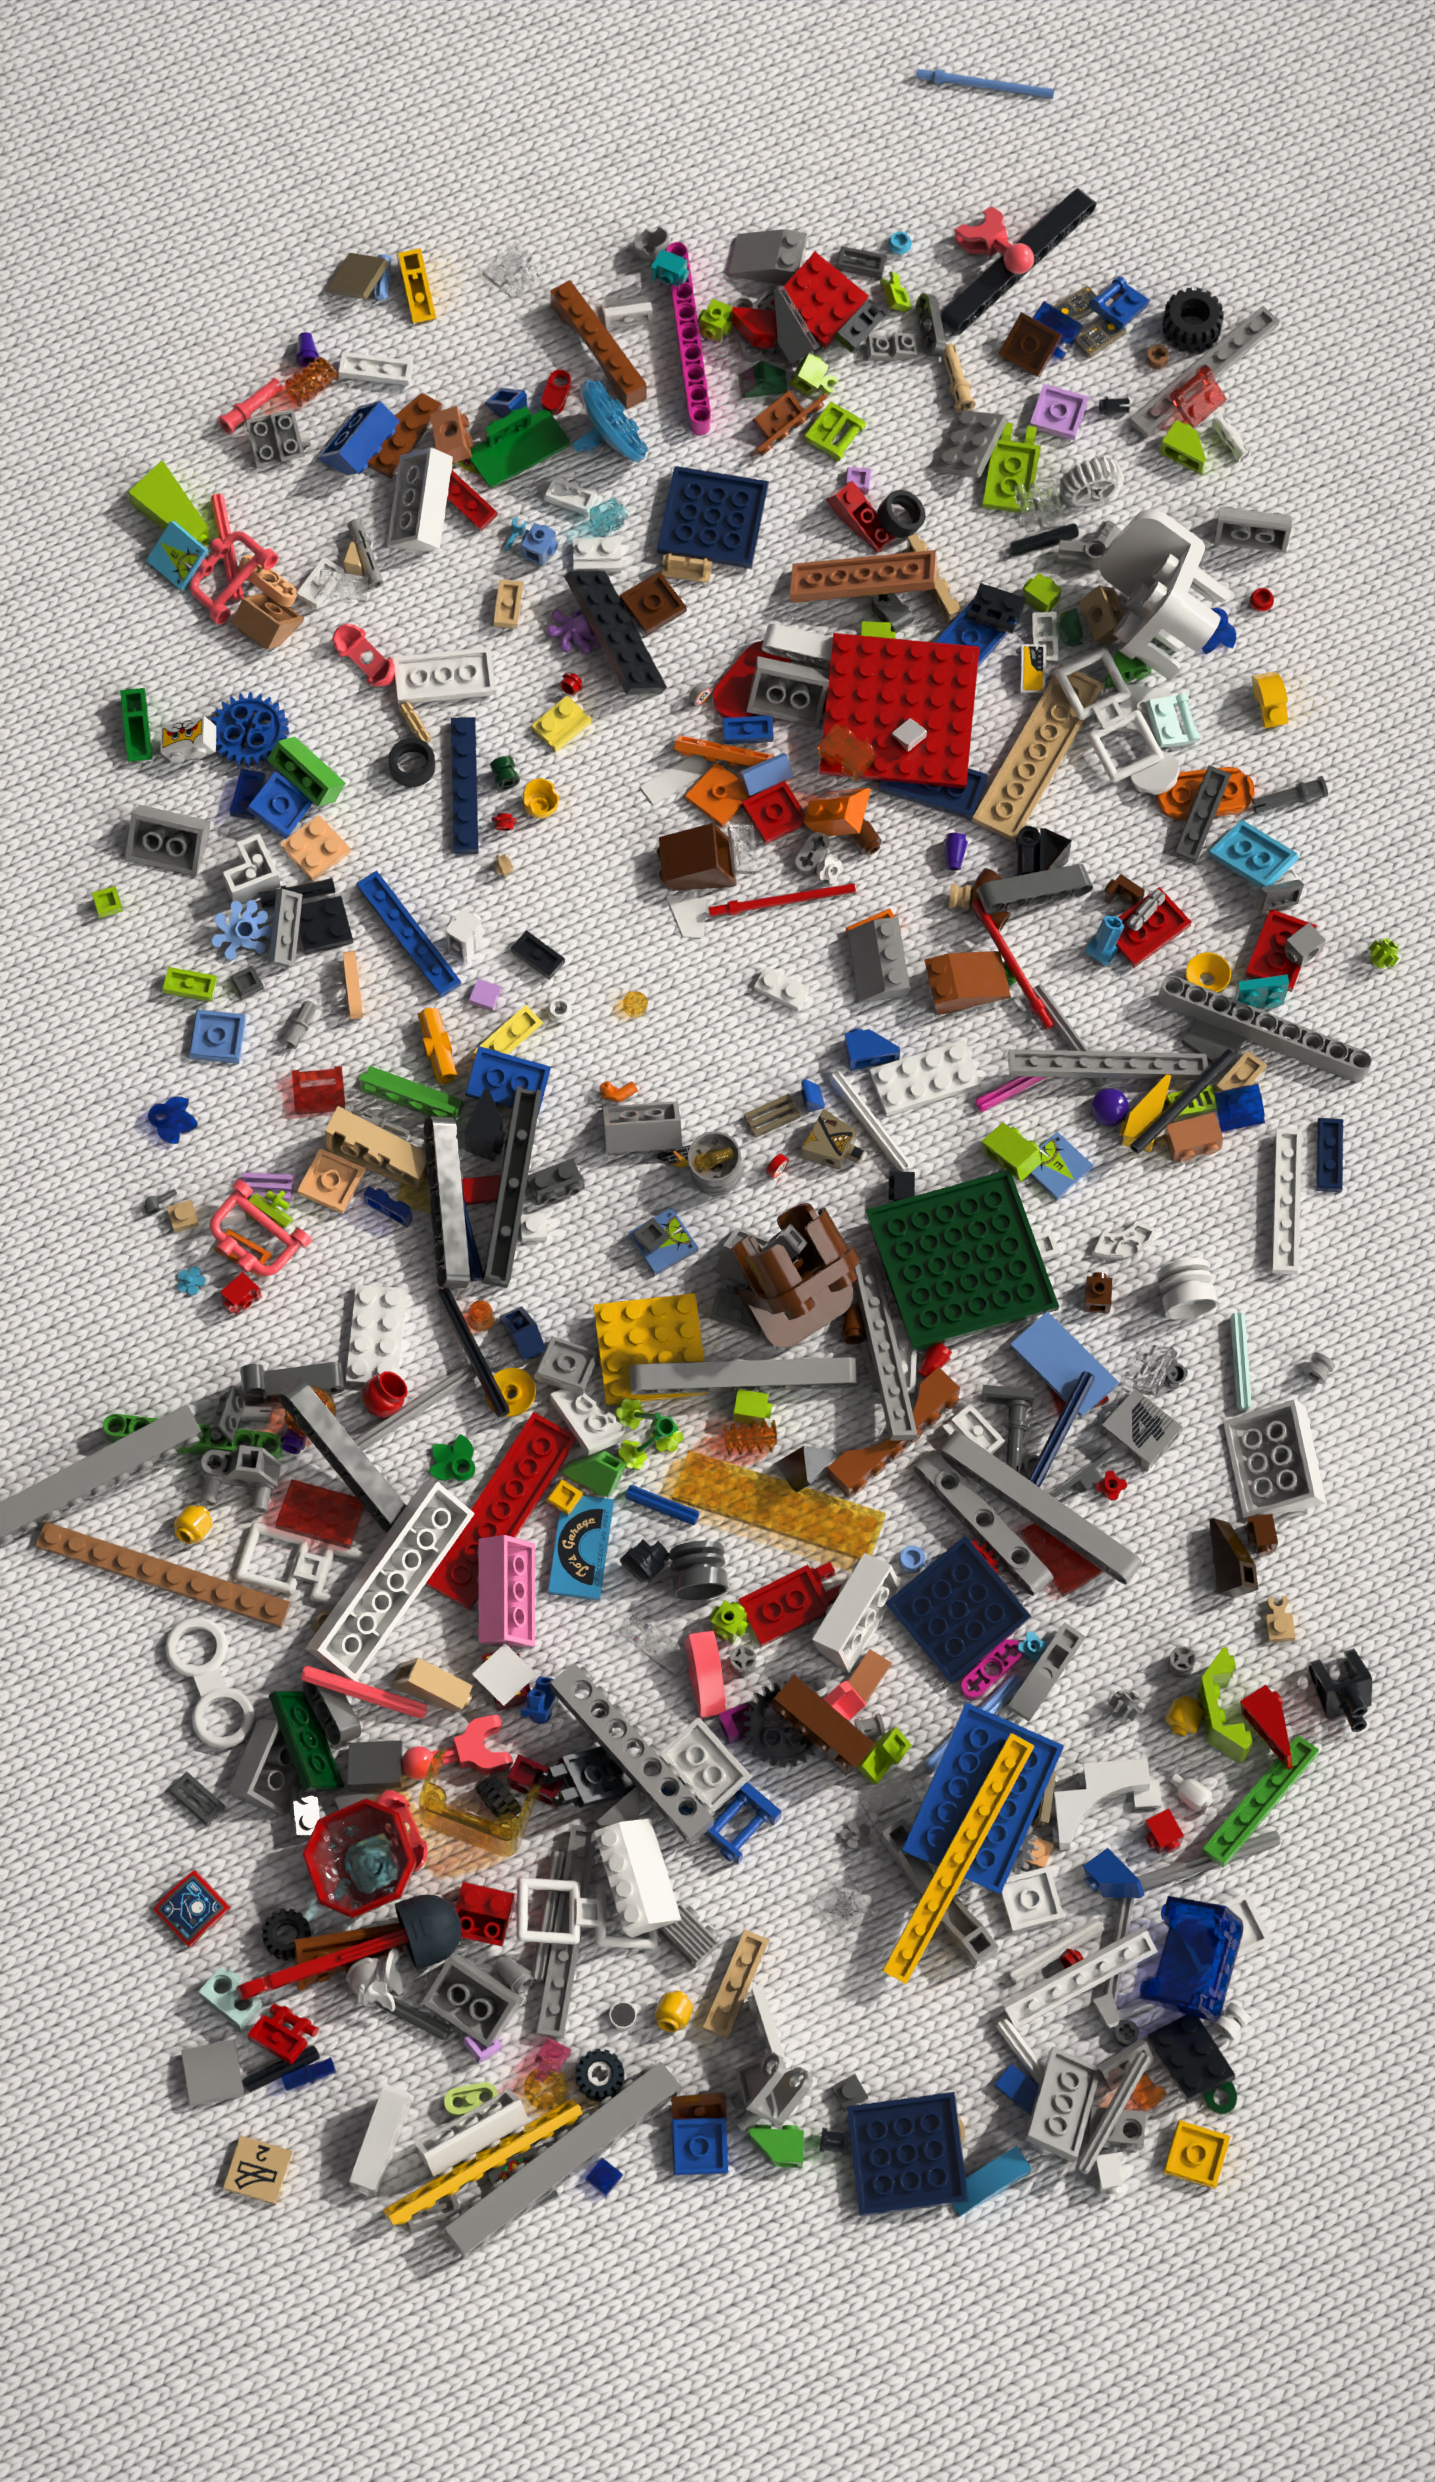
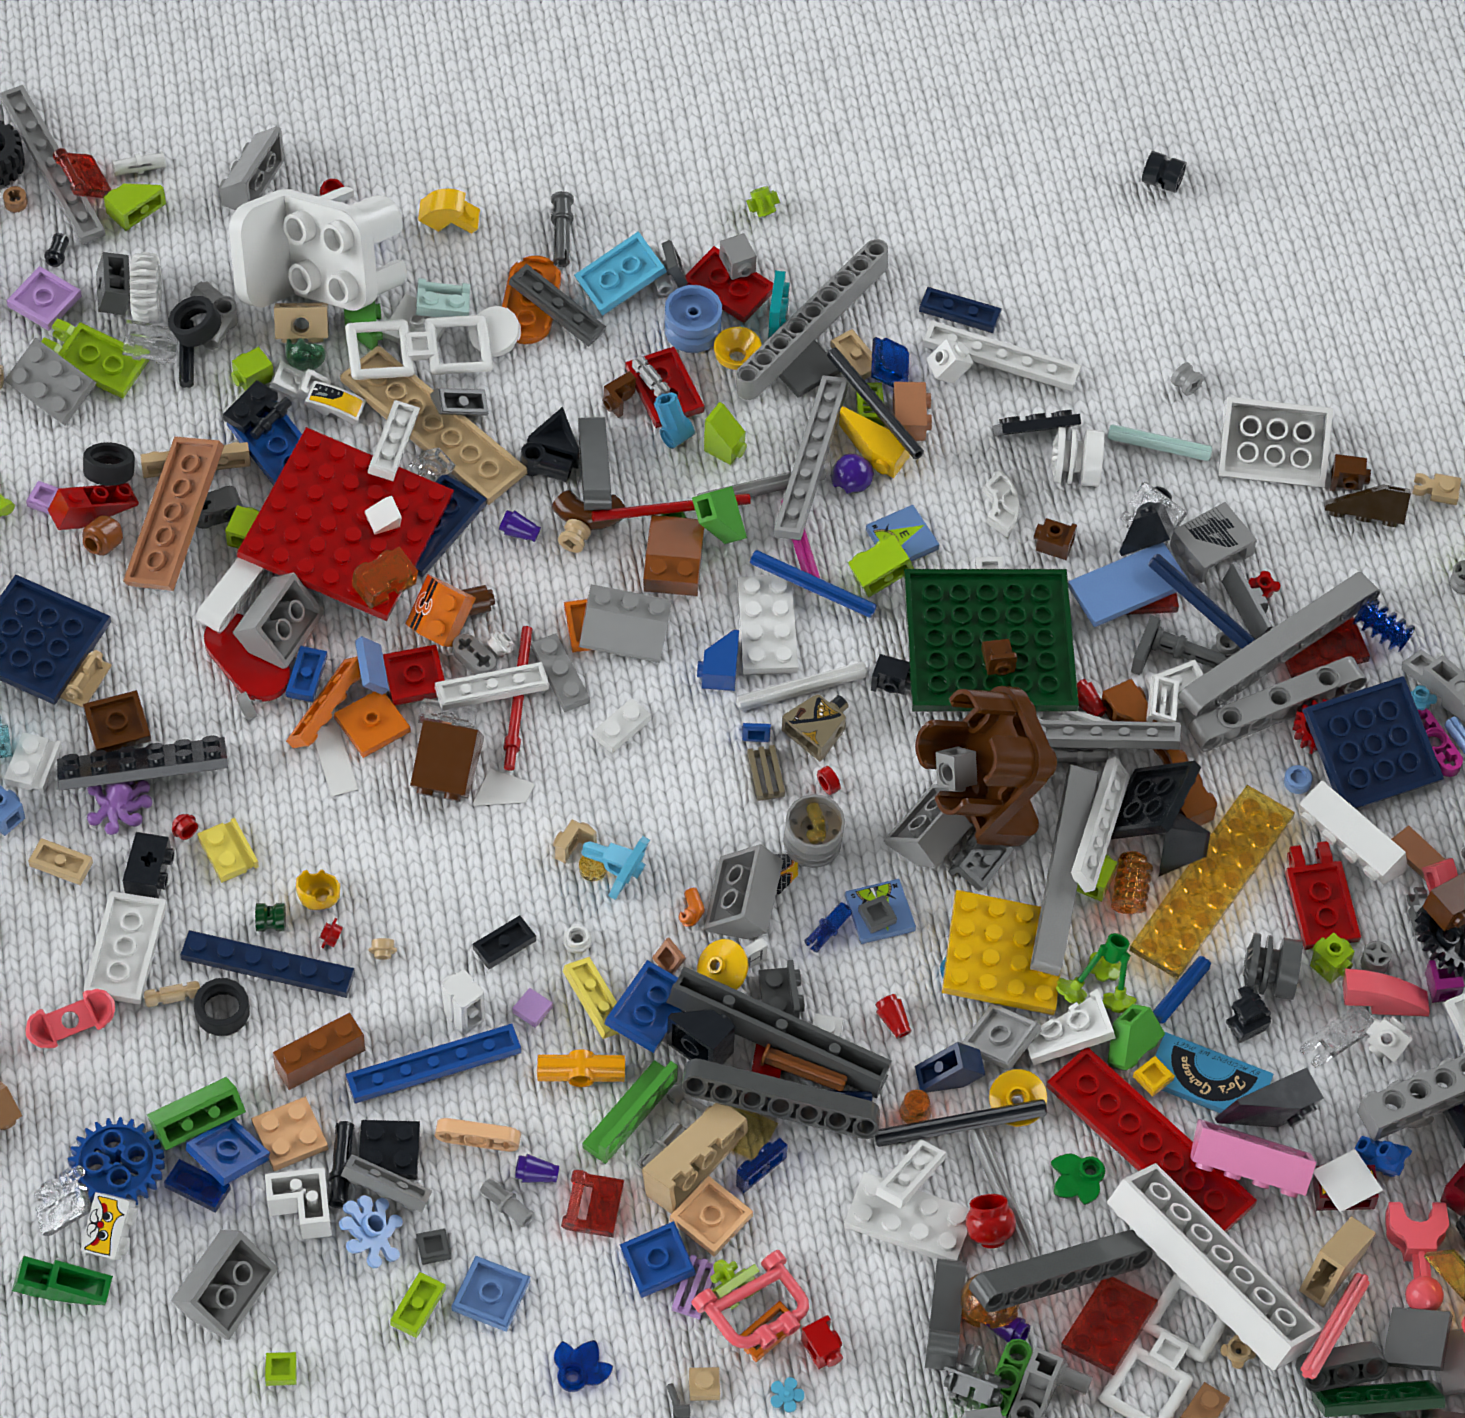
camera: 75 degrees left, 10 degrees down
(200, 701) = (64, 1207): none -> clear plate
(280, 1150) = (657, 1259): none -> blue plate
(334, 1037) = (534, 1169): none -> dark purple cone
(391, 844) = (319, 1051): none -> dark orange brick
(410, 1322) = (910, 1173): none -> white plate
(484, 1214) = (804, 1069): none -> dark orange axle
(532, 659) = (147, 865): none -> black brick
(560, 1600) = (1276, 1103): none -> black slope
(562, 1275) = (893, 1015): none -> red cone
(563, 1086) = (669, 956): none -> nougat slope
(563, 1128) = (732, 962): none -> yellow dish
(584, 1148) = (756, 952): none -> white tile
(632, 1203) = (829, 926): none -> clear blue axle
(636, 1024) = (619, 861): none -> medium azure piece
(652, 977) = (568, 840): none -> tan bracket
(659, 1684) = (1390, 1049): none -> white brick
(780, 873) = (491, 686): none -> white tile
(794, 1393) = (1100, 825): none -> white plate
(819, 926) = (560, 672): none -> light grey plate
(830, 533) = (102, 535): none -> dark orange head
(833, 1431) = (1154, 799): none -> black plate
(937, 1267) = (999, 657): none -> reddish brown bracket
(947, 1429) = (1152, 701): none -> white tile
(974, 1101) = (813, 583): none -> blue axle
(987, 762) = (433, 462): none -> clear plate
(995, 720) = (393, 440): none -> white tile
(1016, 1000) = (720, 514): none -> bright green slope
(1064, 766) = (460, 401): none -> dark grey slope
(1066, 541) = (202, 332): none -> black tyre
(1096, 1595) = (1384, 625): none -> clear blue piece
(1099, 448) = (113, 283): none -> dark grey brick
(1105, 986) = (724, 435): none -> lime slope
(1125, 1364) = (1149, 527): none -> black slope
(1211, 1245) = (1036, 422): none -> black plate
(1225, 927) = (692, 318): none -> medium blue wheel
(1258, 1155) = (950, 361): none -> white brick

